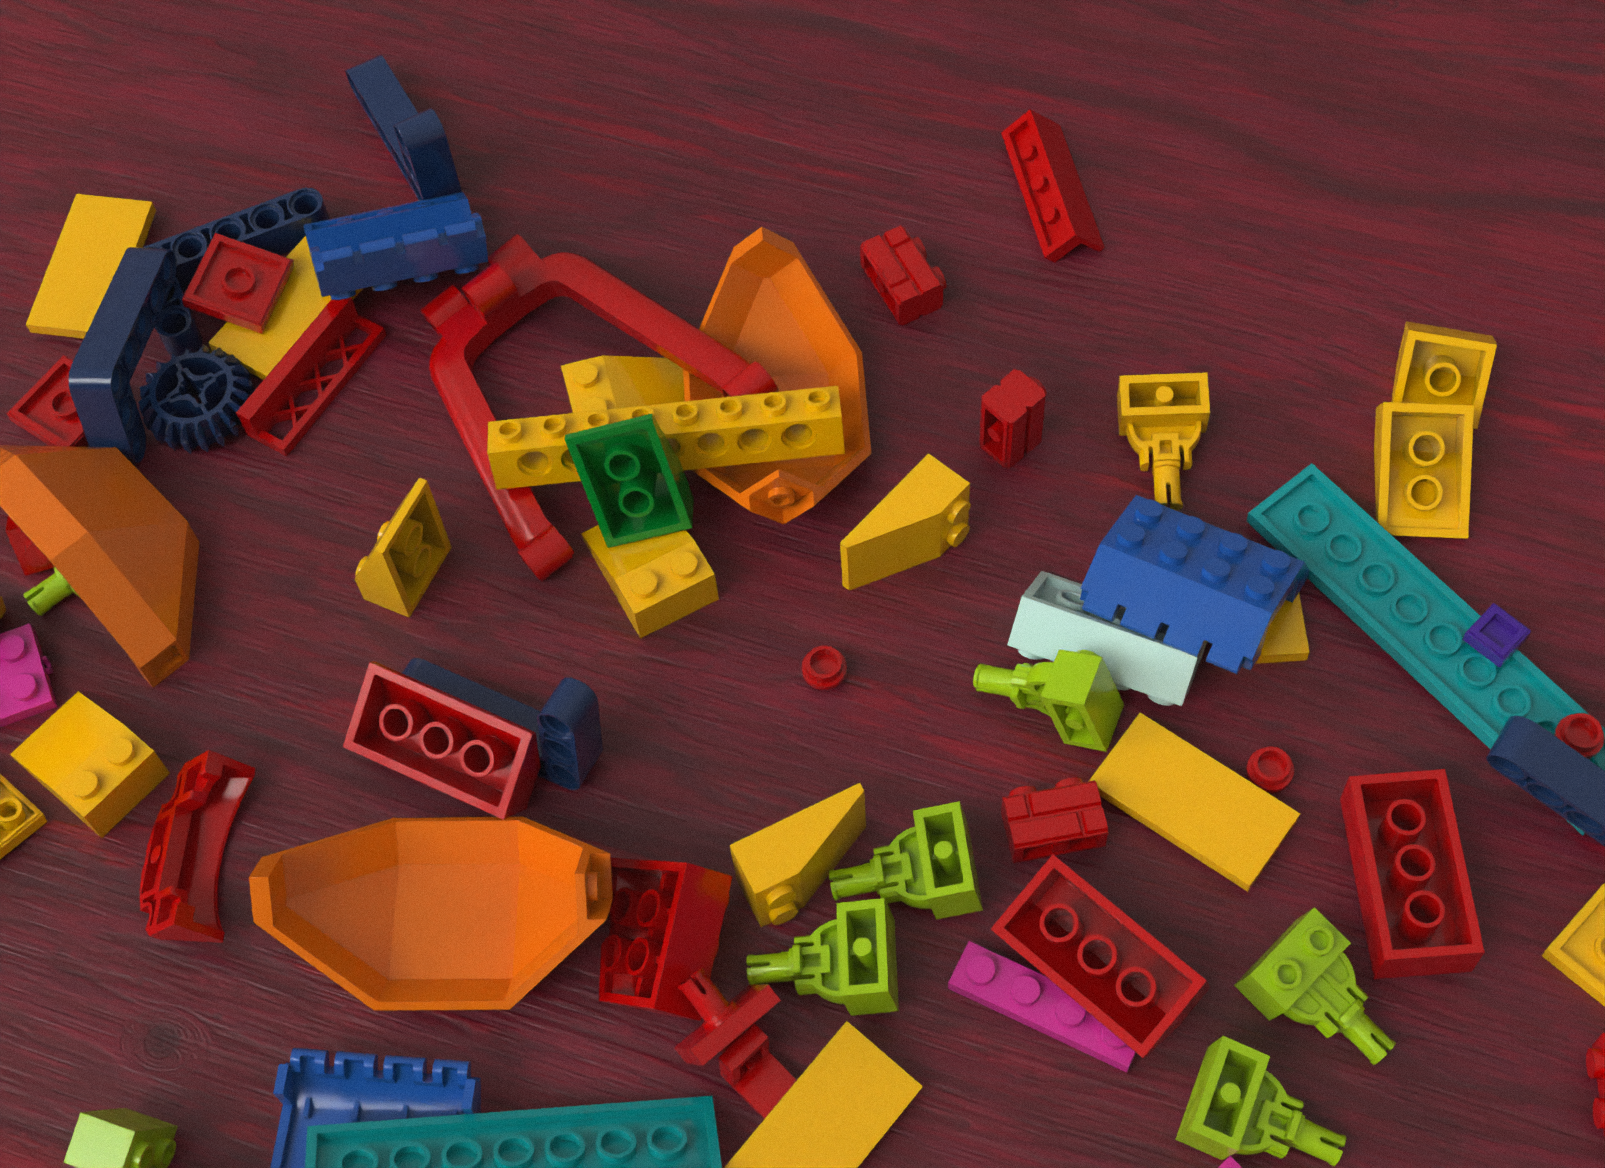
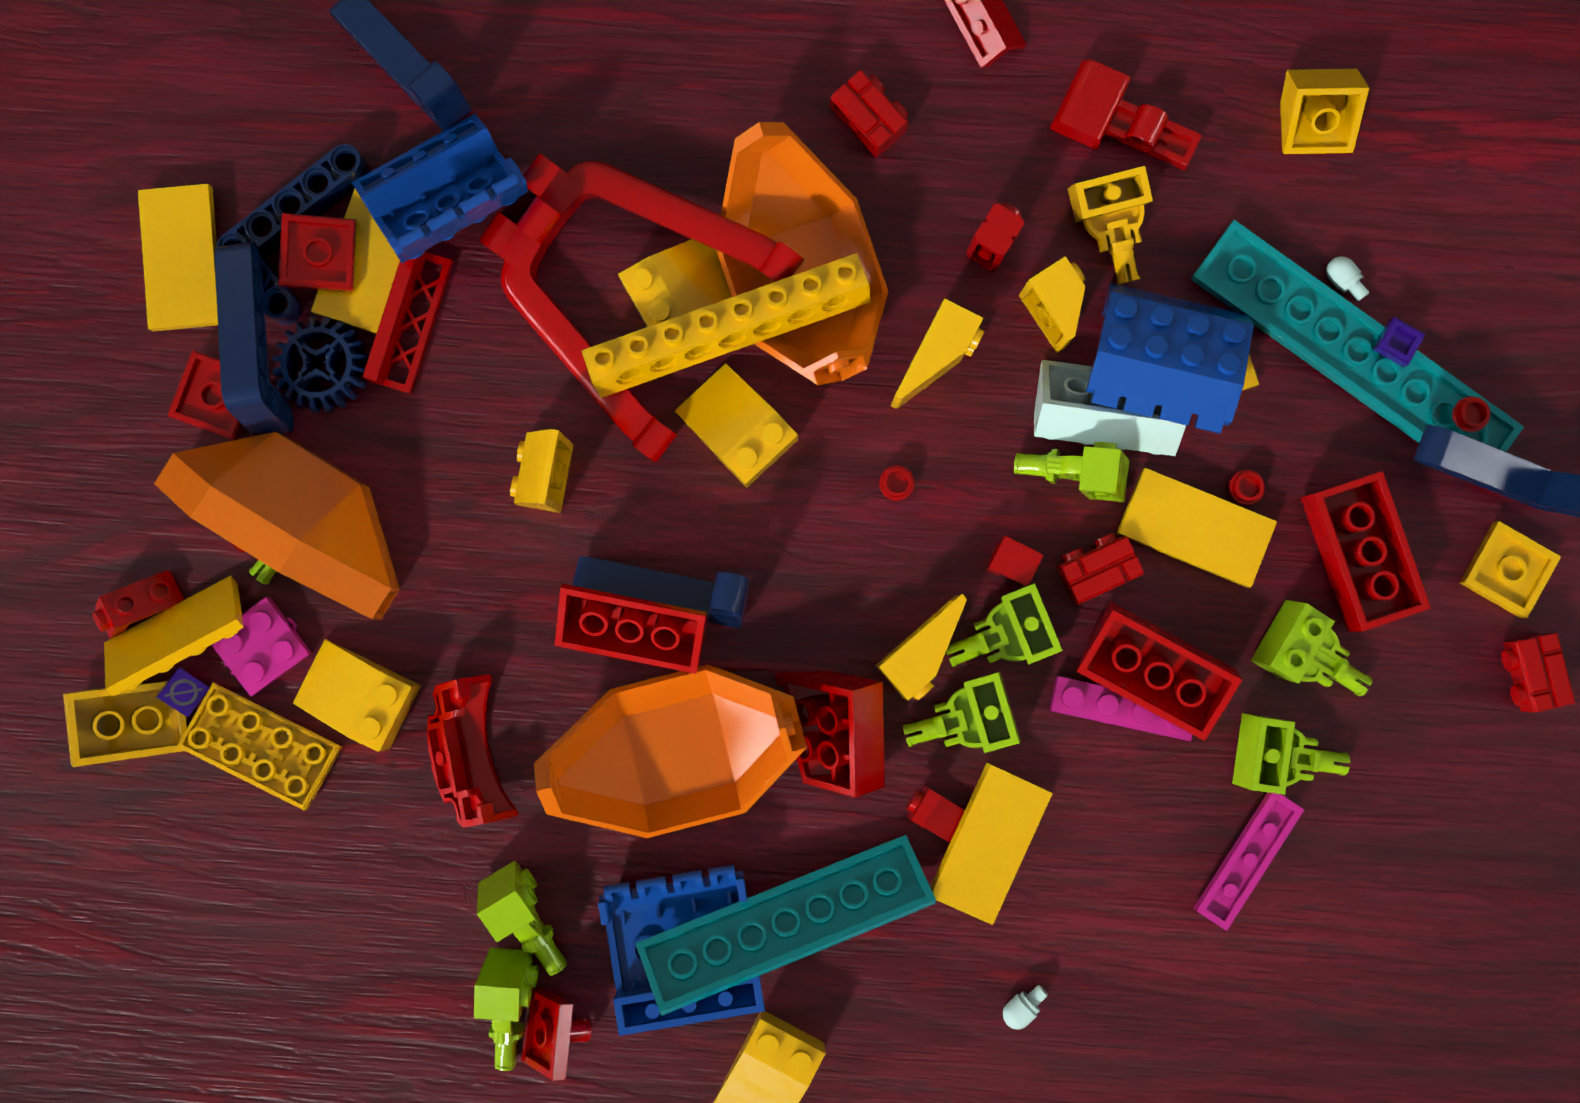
camera: 20 degrees left, 25 degrees up
(171, 1044) = (508, 906): none -> lime brick
(632, 480) = (716, 379): green slope -> none
(722, 1018) = (905, 789): red tile -> none
(944, 780) = (1014, 561): none -> red panel
(1068, 496) = (1056, 301): none -> yellow slope
(1174, 320) = (1096, 109): none -> red plate
(1423, 469) = (1320, 202): yellow slope -> none
(1445, 557) = (1346, 277): none -> light aqua cylinder

